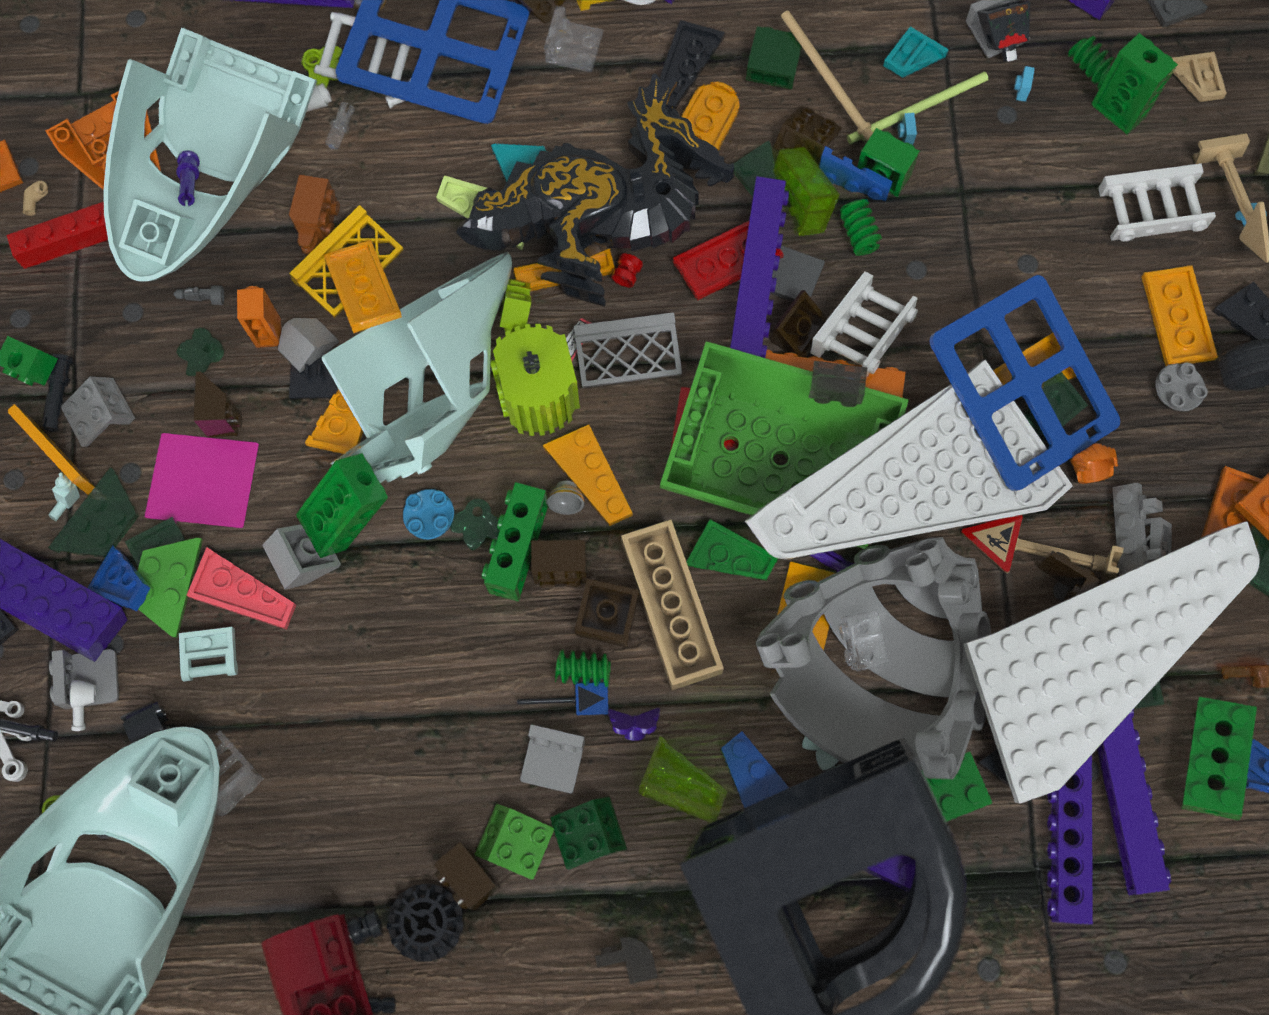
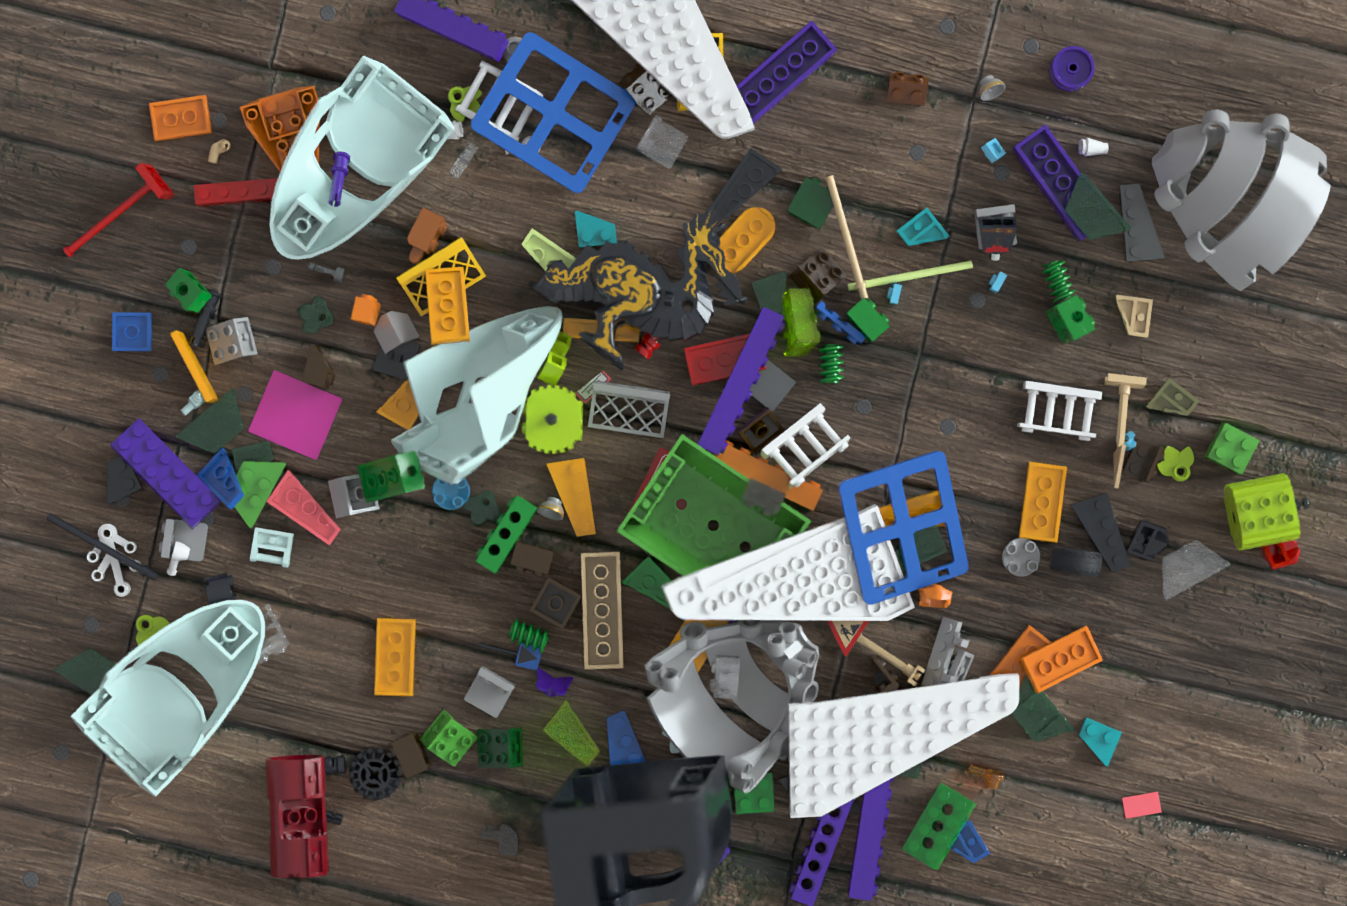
camera: 10 degrees right, 15 degrees up
(411, 753) = (395, 657): none -> light orange tile

